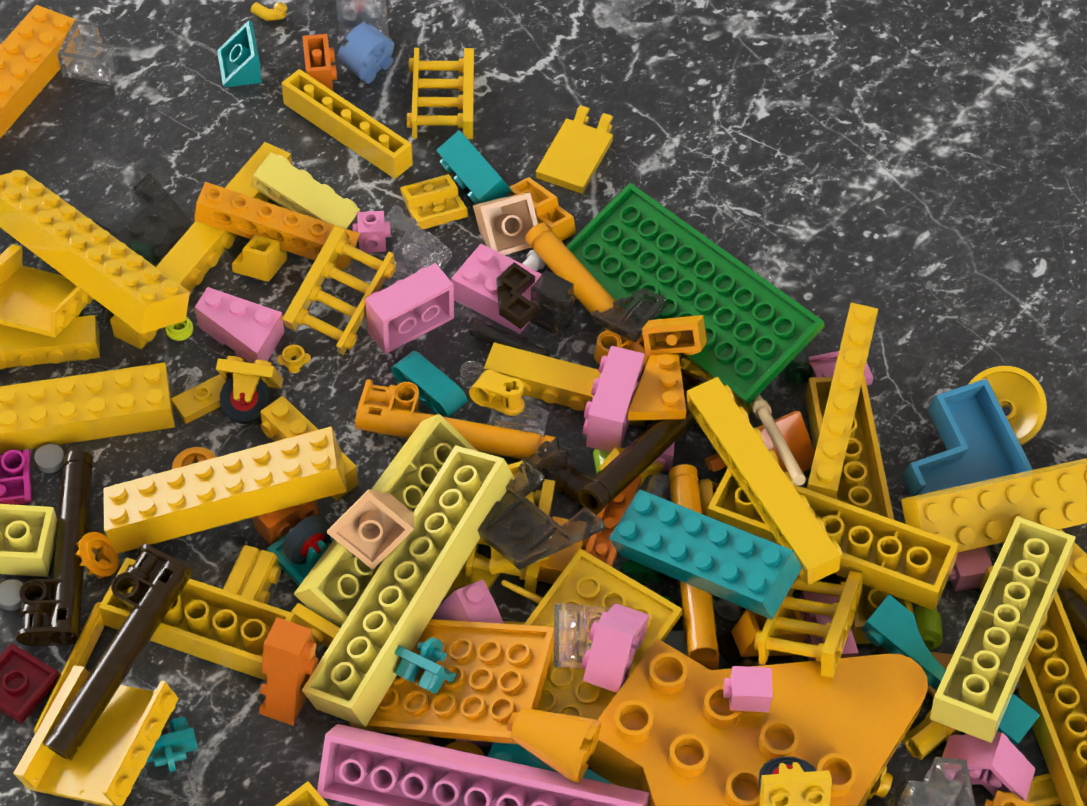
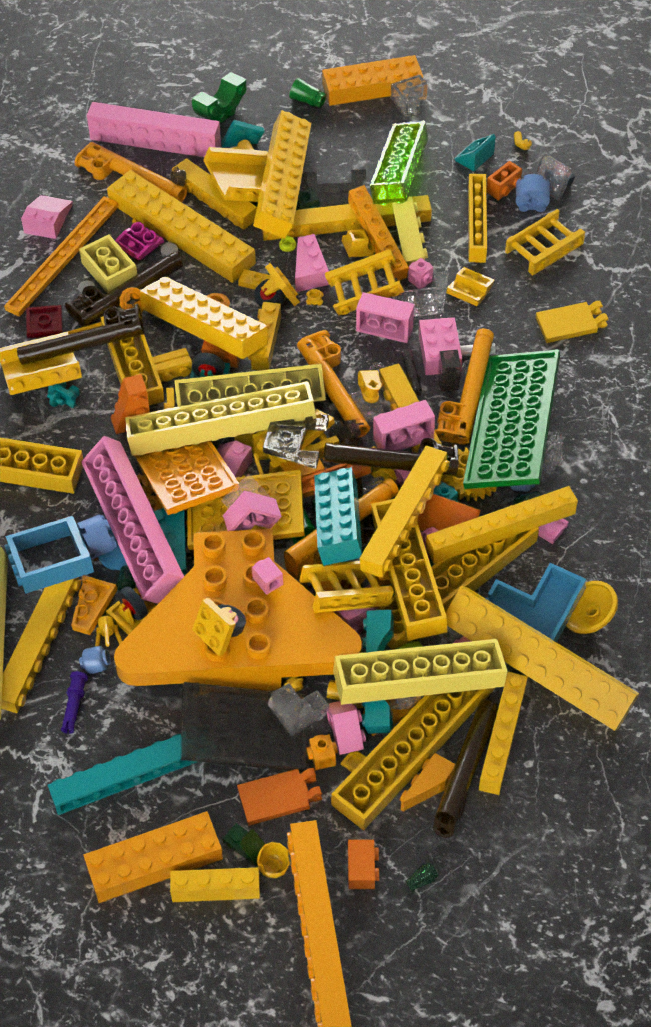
camera: 55 degrees right, 0 degrees up
(201, 129) = (399, 163): none -> clear neon green brick
(373, 527) = (229, 378): light nougat slope -> none
(412, 663) = (177, 452): teal hips -> none
(434, 387) = (351, 357): teal beam -> none
(471, 169) = (504, 286): teal brick -> none
(506, 222) = (484, 316): light nougat slope -> none
(511, 303) = (425, 352): dark brown tile -> none
(546, 208) = (512, 331): light orange slope -> none
(557, 739) = (173, 521): light orange cone -> none
(631, 313) = (471, 404): clear smoke wing -> none
(659, 391) = (435, 437): light orange wing -> none
(674, 335) = (470, 427): light orange brick -> none
(763, 412) = (464, 496): tan bar -> none

